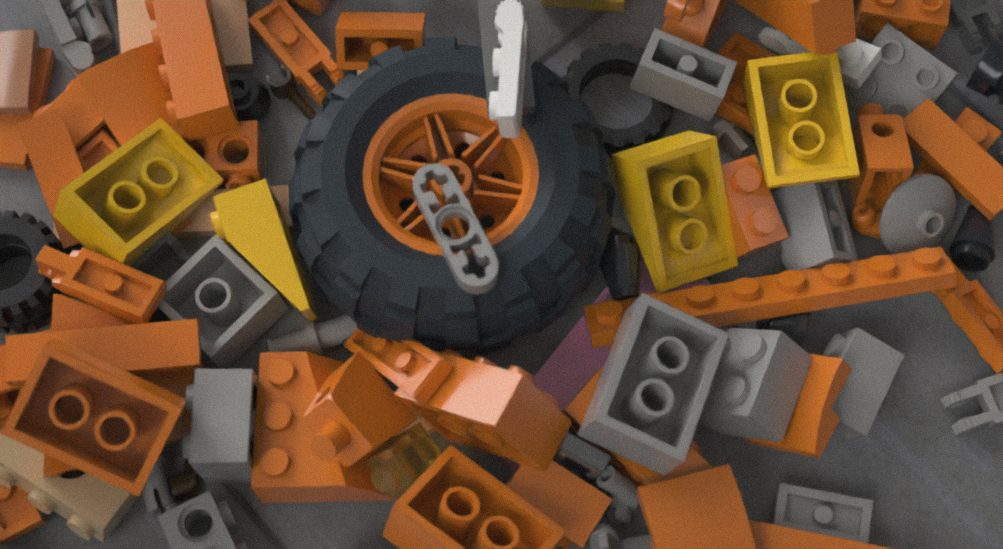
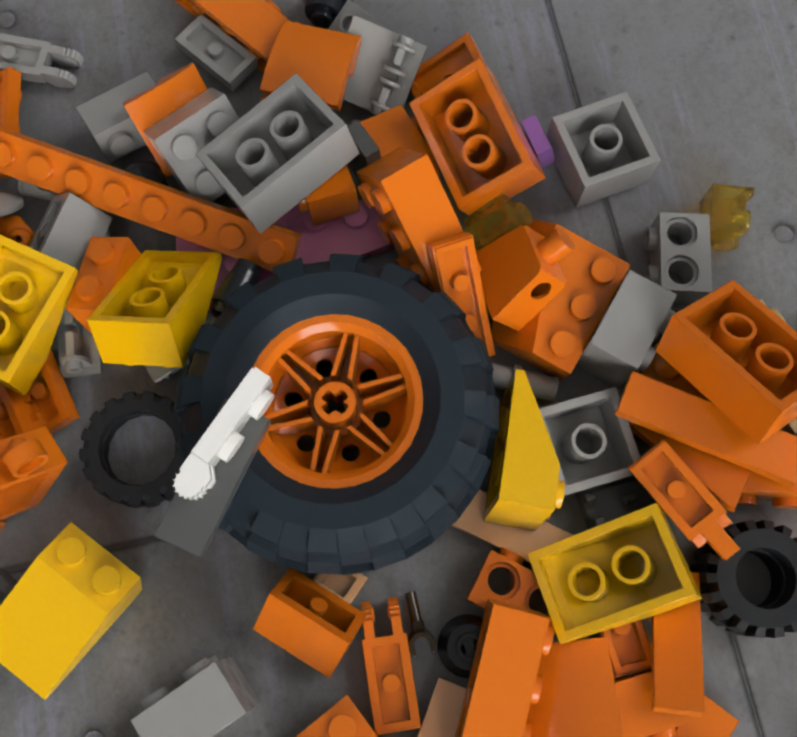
camera: 150 degrees left, 5 degrees up
(457, 263) = (352, 294): light grey beam -> none
(683, 75) = (71, 412): light grey brick -> none

